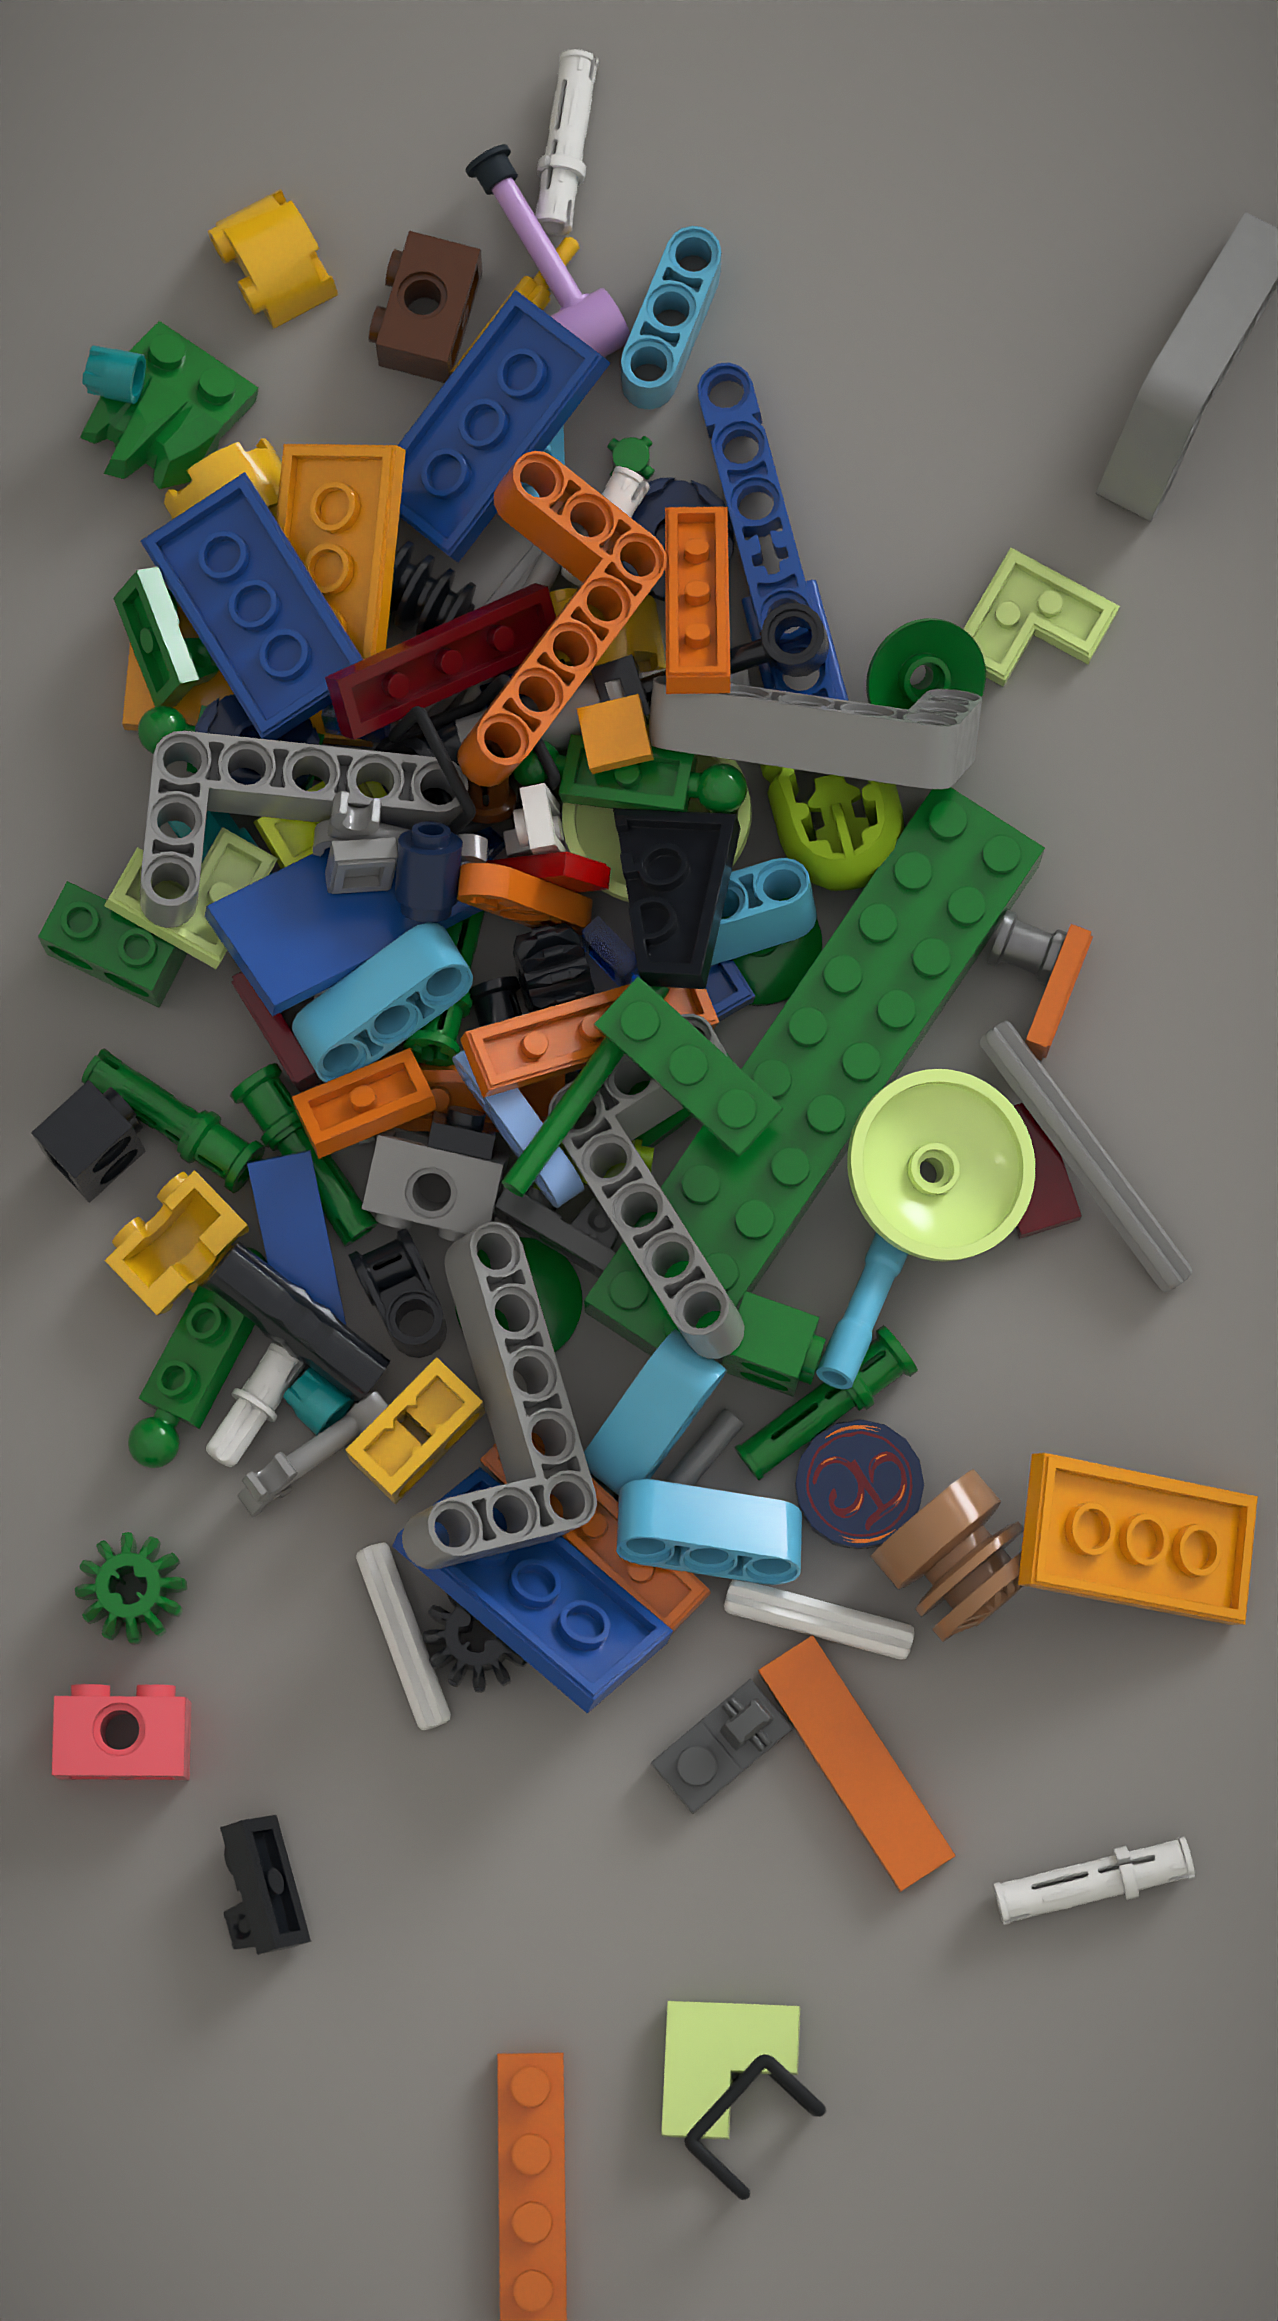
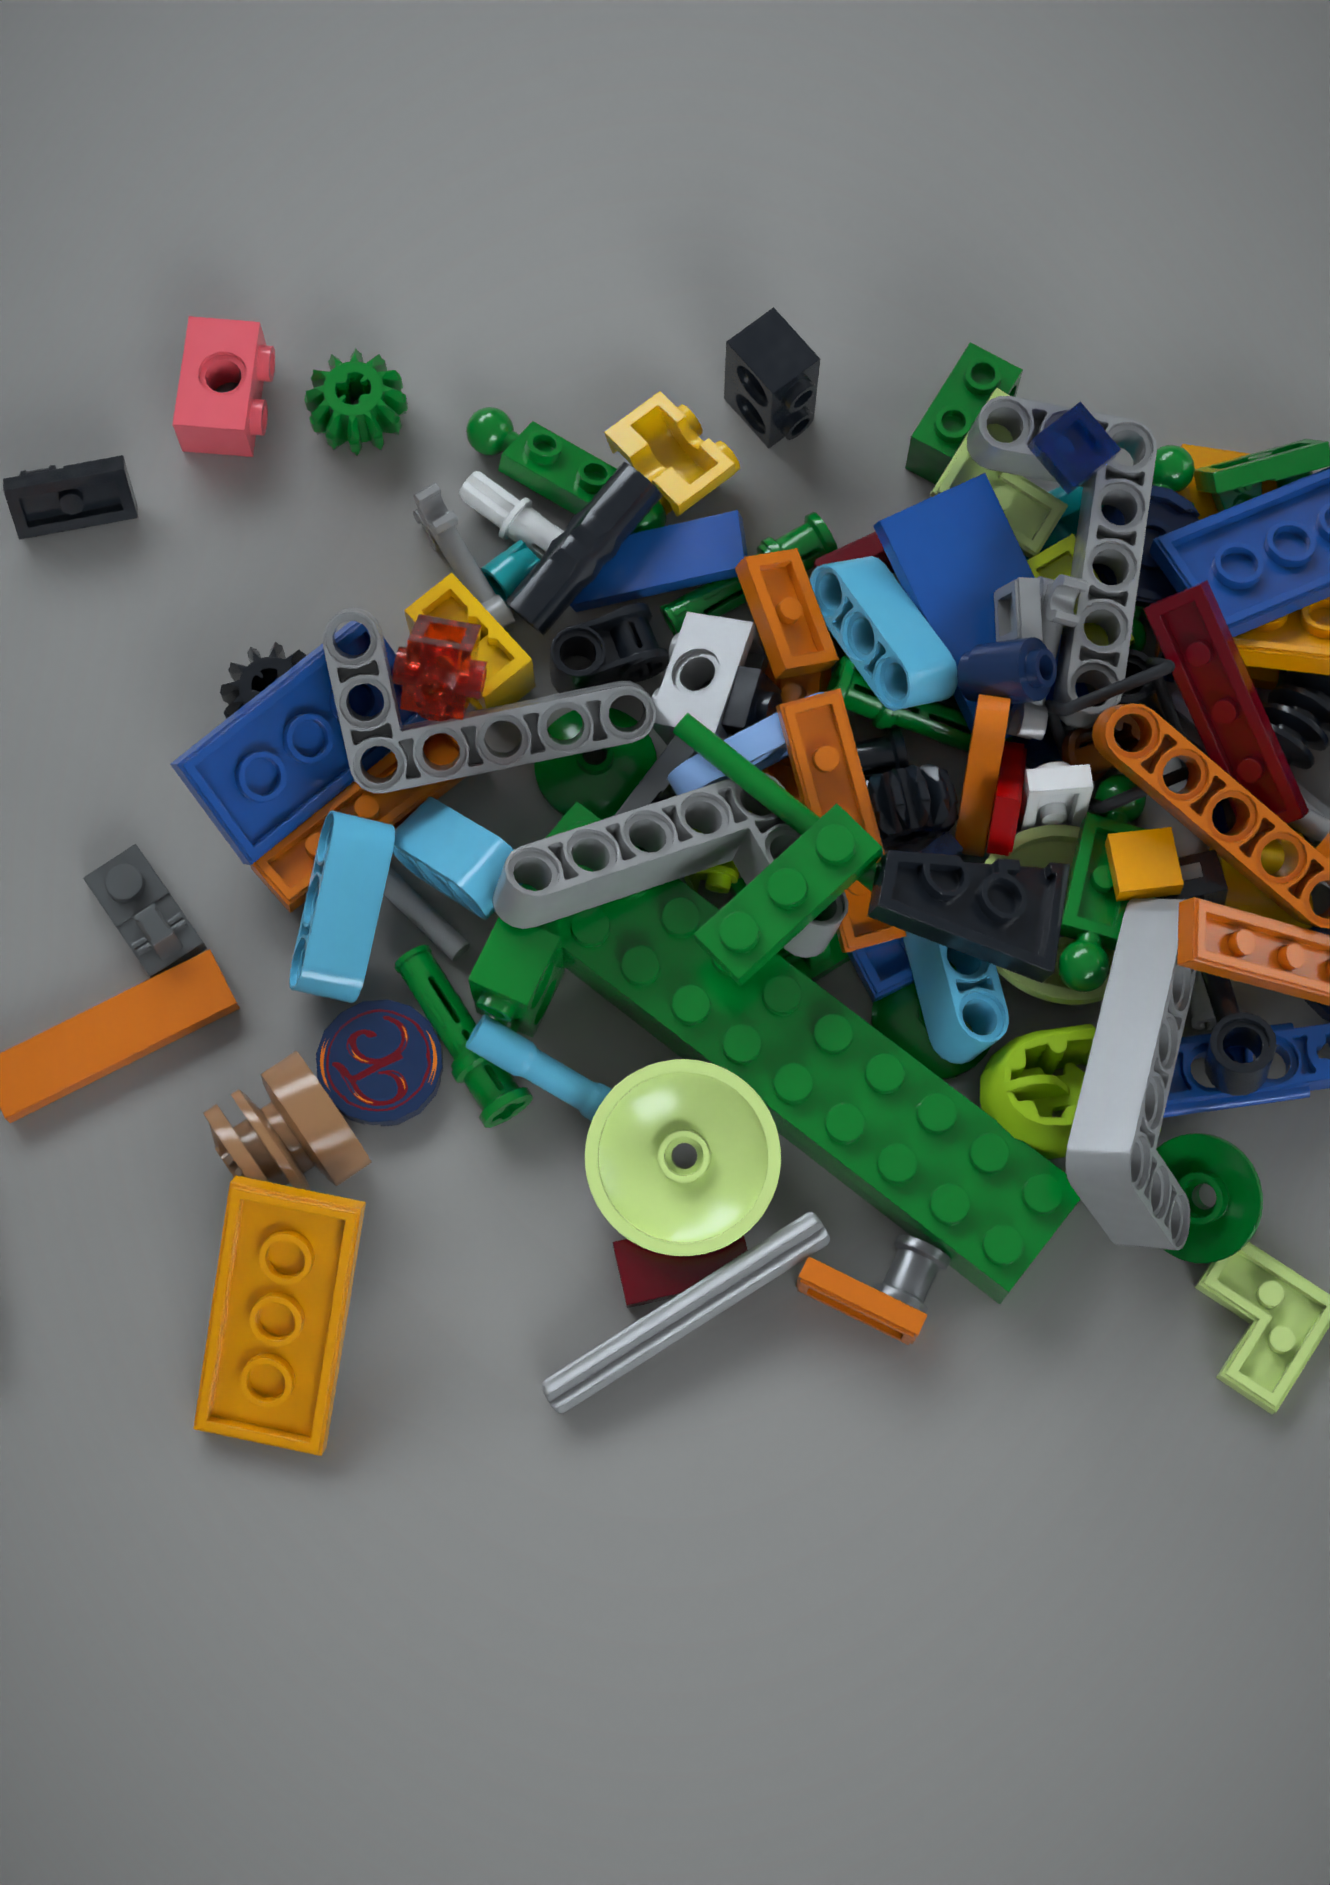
camera: 95 degrees right, 5 degrees down
(195, 809) = (1074, 448): none -> clear blue tile
(196, 1134) = (777, 484): green pin -> none
(403, 1636) = (292, 632): white axle -> none
(468, 1438) = (440, 668): none -> clear red brick
(819, 1619) = (252, 1014): white axle -> none

